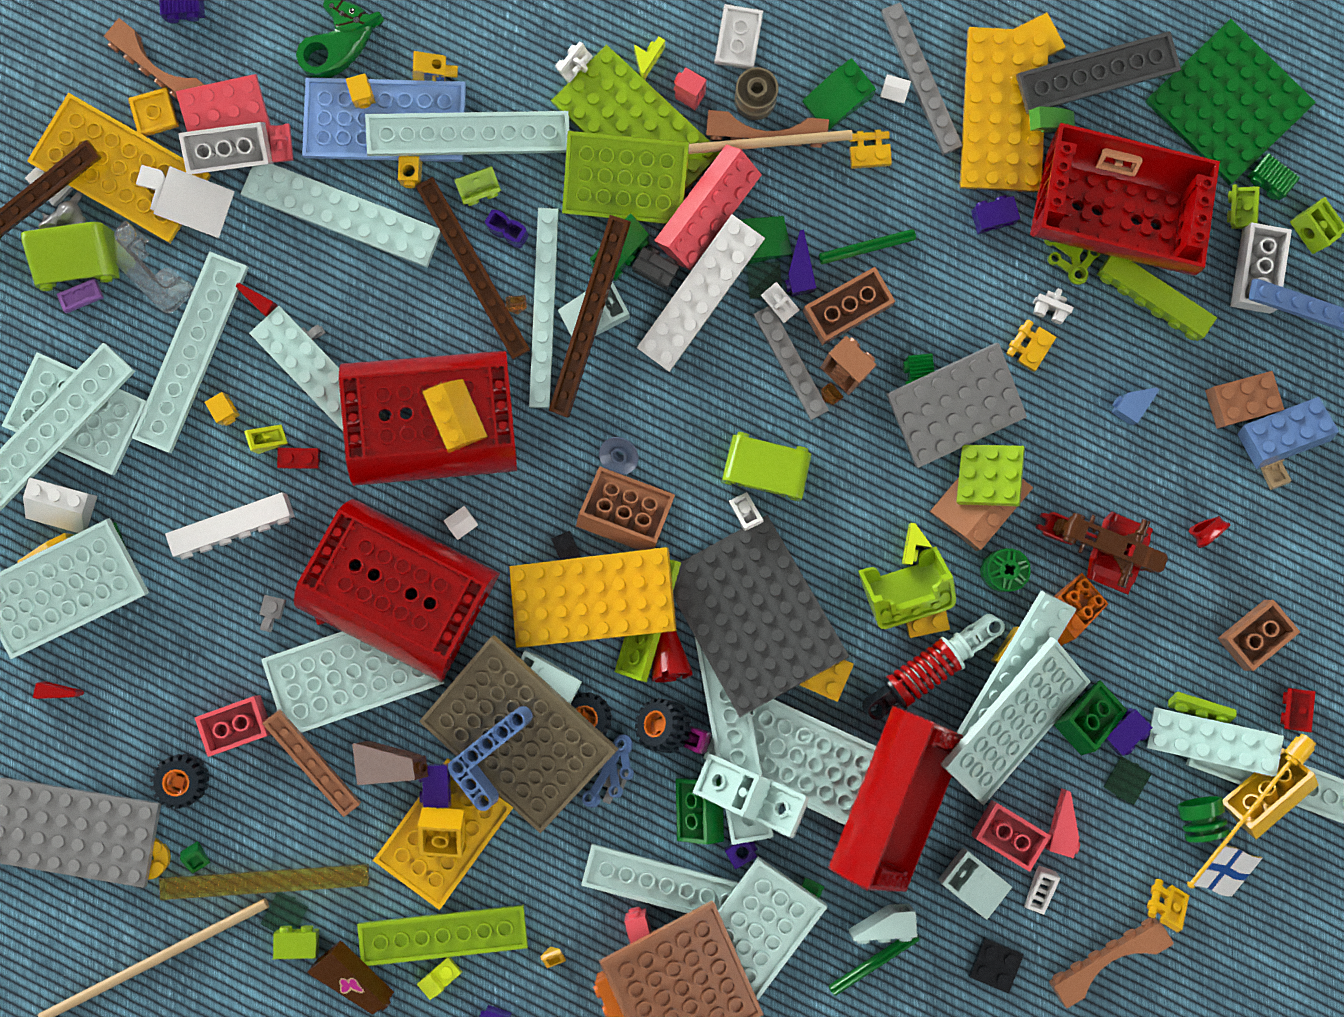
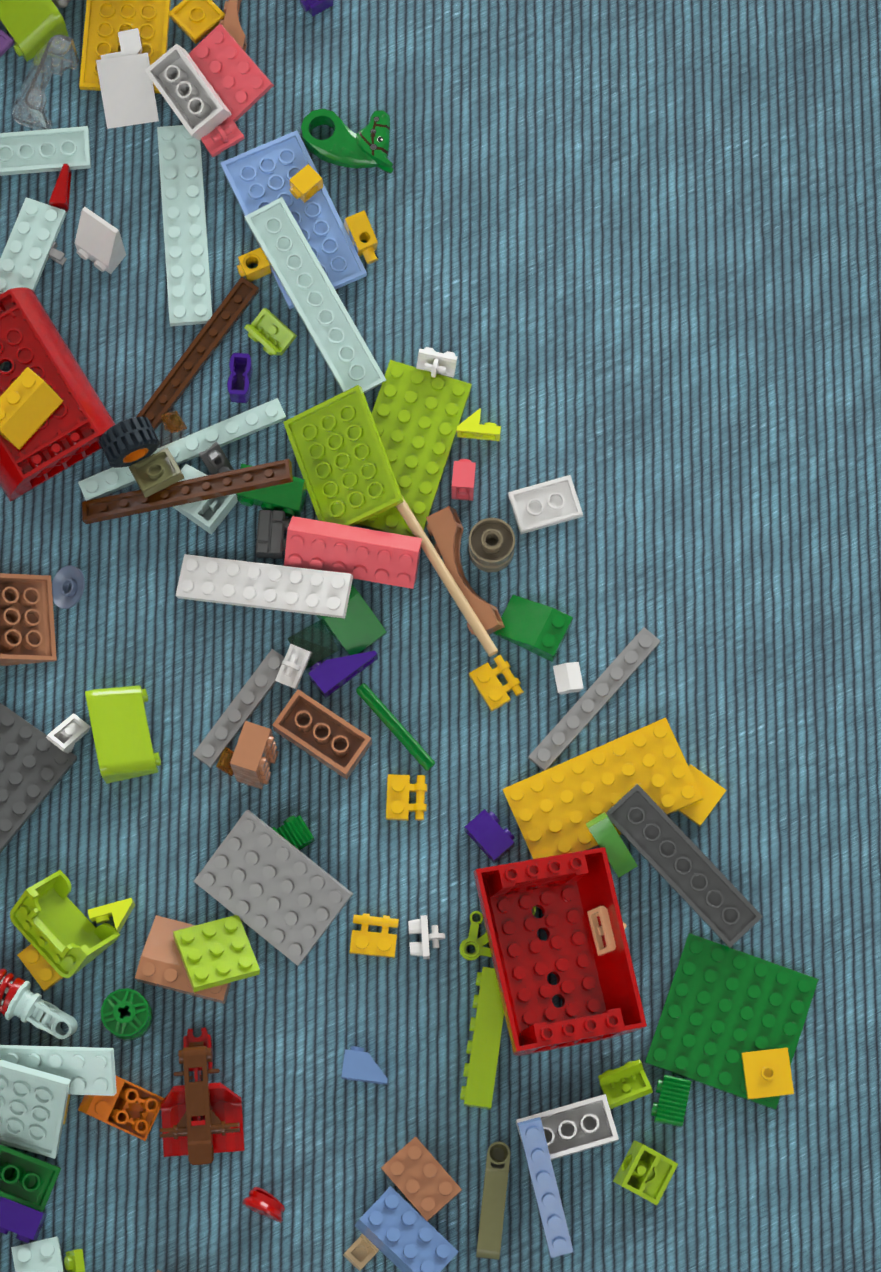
camera: 65 degrees right, 10 degrees down
(324, 288) = (99, 242): none -> white slope
(522, 343) = (129, 442): none -> black wheel
(558, 335) = (156, 472): none -> olive plate
(572, 282) = (215, 459): none -> dark grey hips
(926, 272) = (398, 797): none -> yellow plate
(1286, 353) = (493, 1201): none -> olive piece
(1289, 92) = (767, 1073): none -> yellow plate

